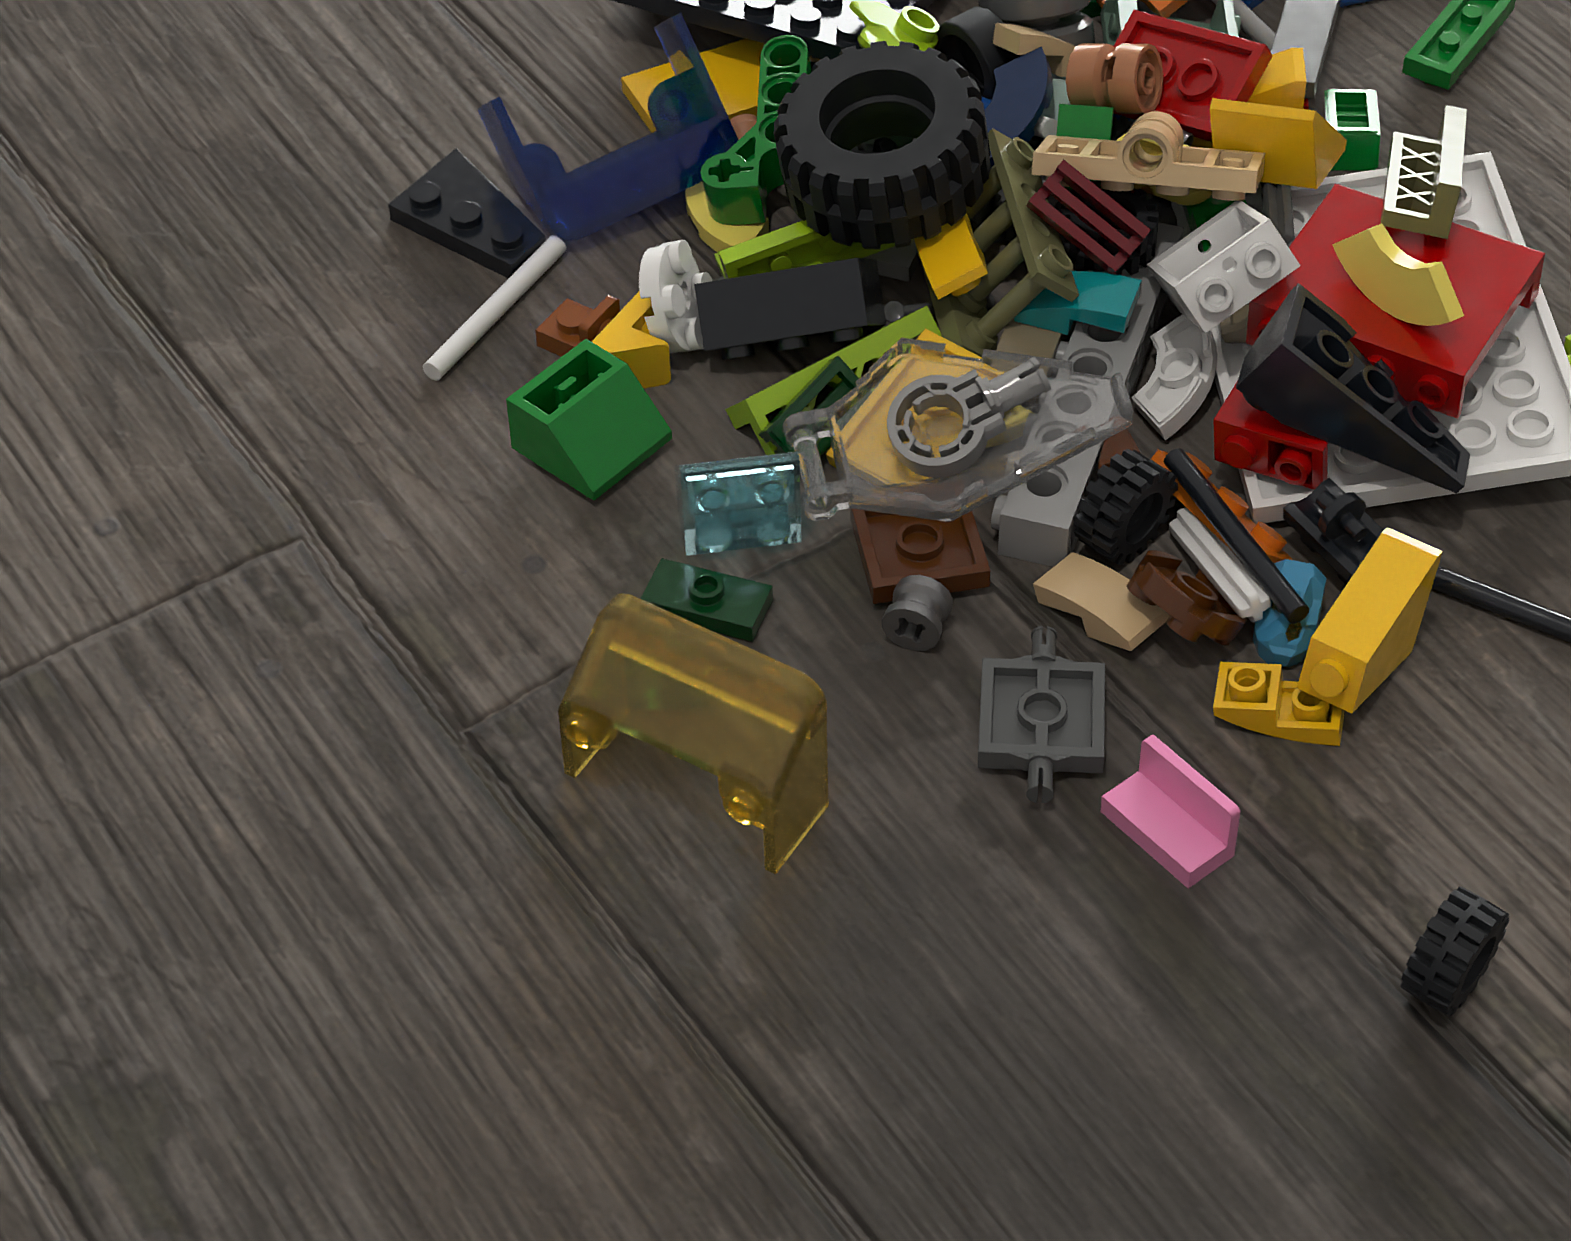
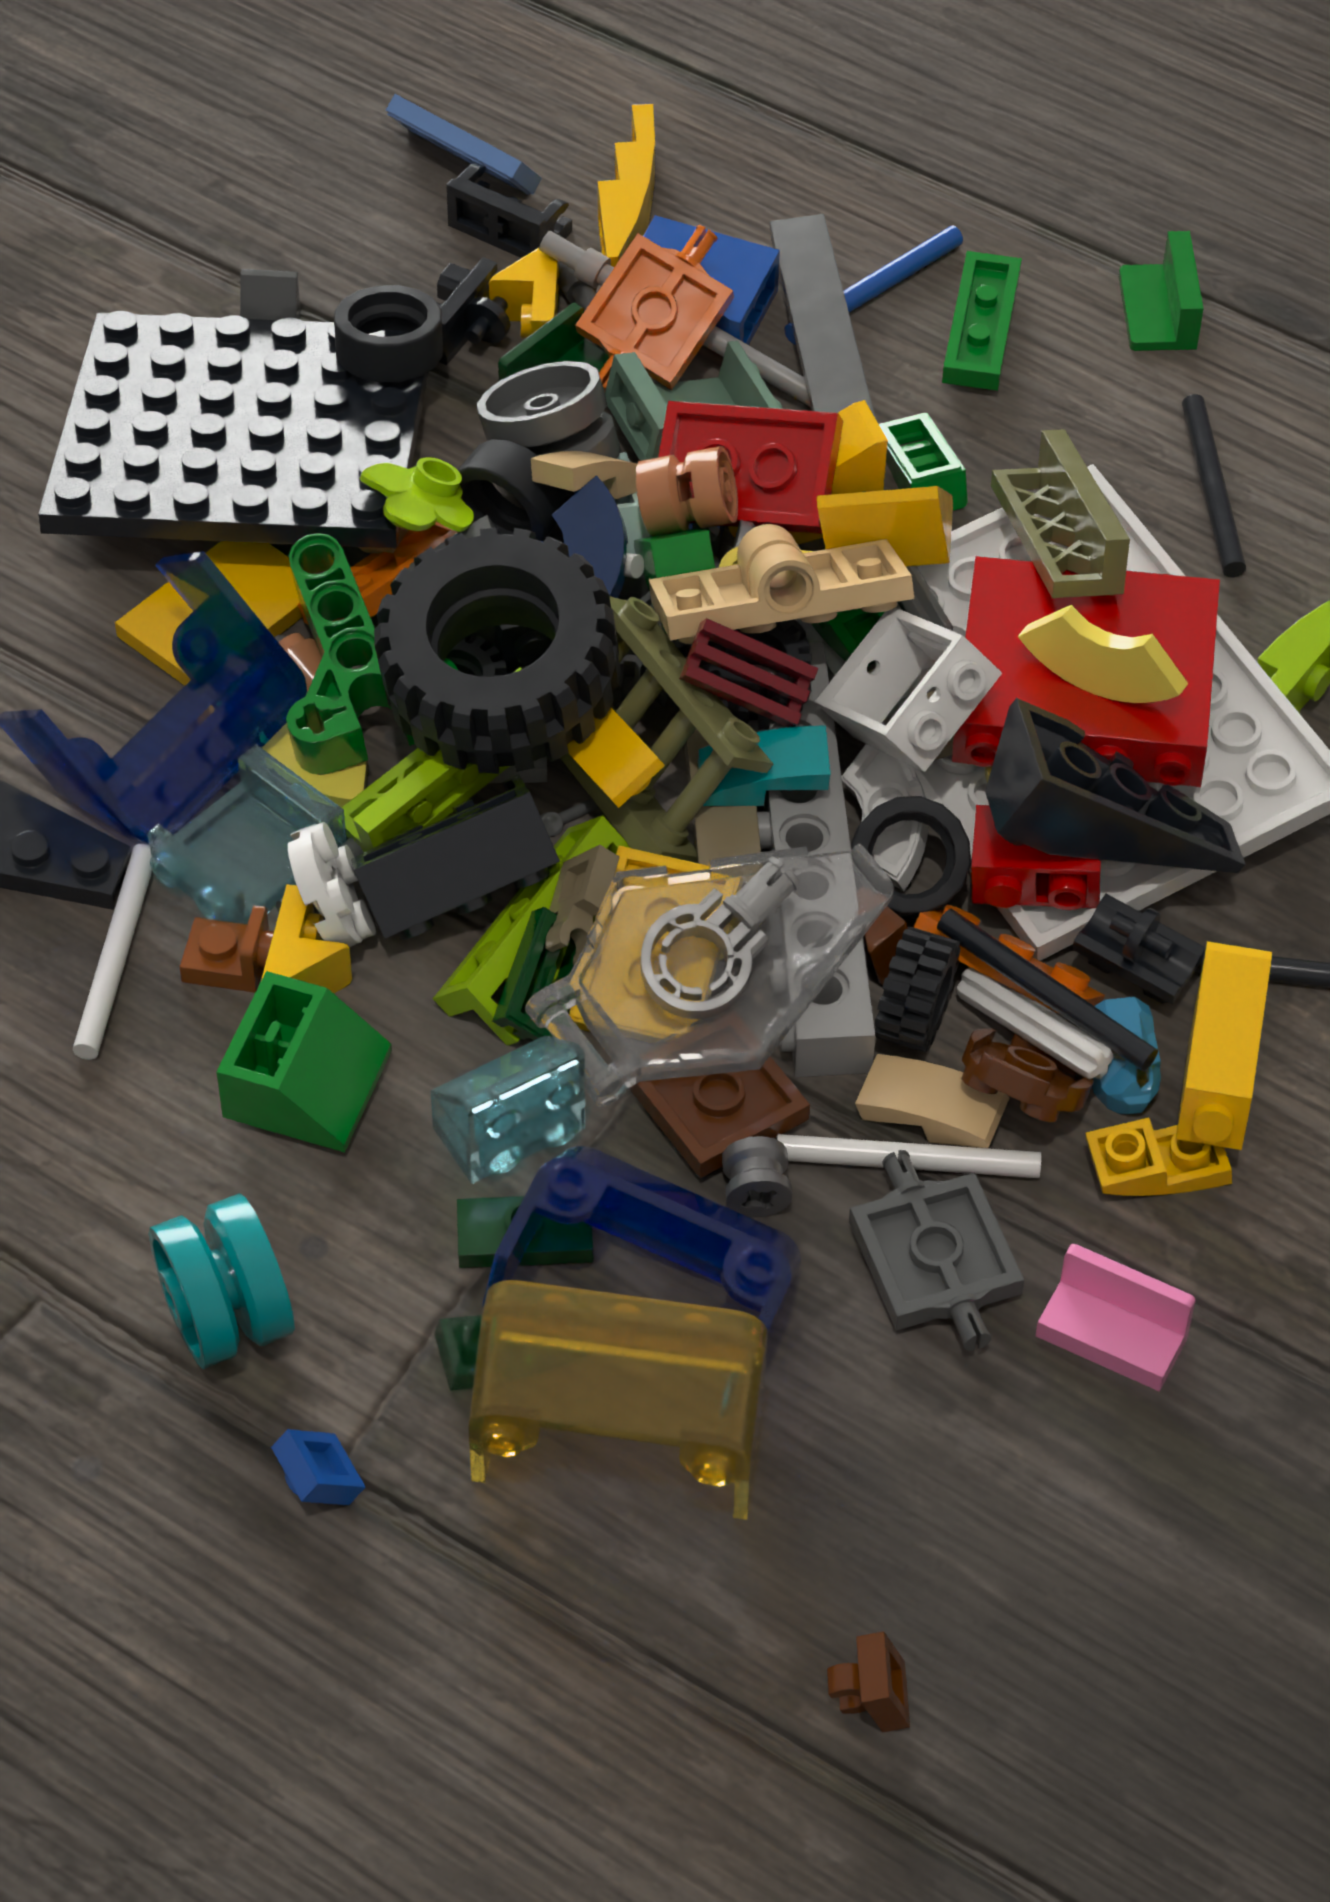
camera: 25 degrees left, 5 degrees up
(422, 553) = (221, 1280): none -> teal wheel
(439, 718) = (317, 1467): none -> blue plate
(612, 257) = (239, 845): none -> clear light blue panel
(808, 1027) = (873, 1683): none -> reddish brown tile
(860, 659) = (668, 1220): none -> clear blue windscreen
(871, 350) = (579, 896): none -> dark tan plate
(1067, 641) = (923, 1156): none -> white bar
(1169, 364) = (945, 825): none -> black tyre

